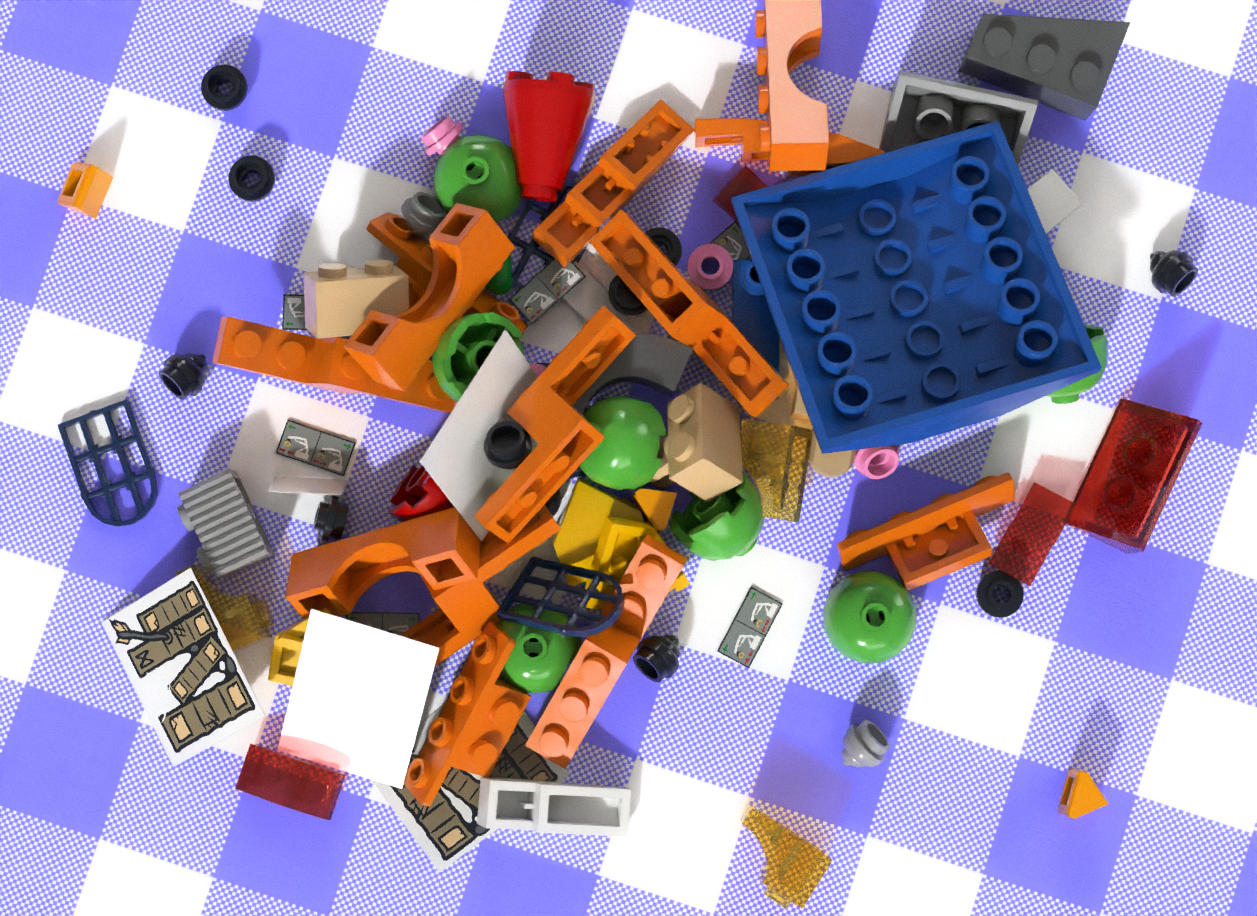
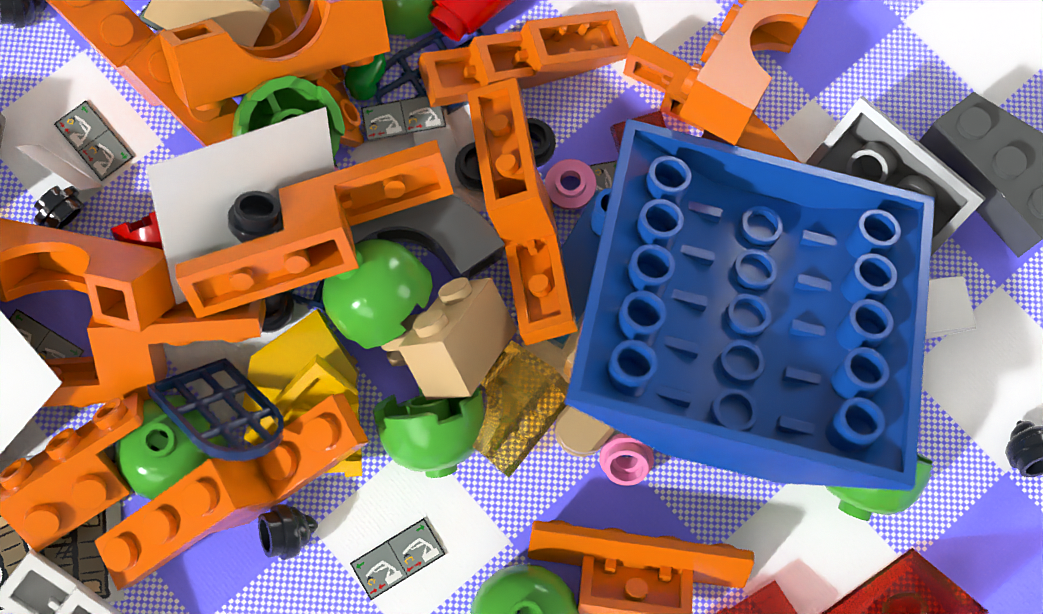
camera: 20 degrees right, 10 degrees down
(655, 506) = (375, 378): light orange slope -> none

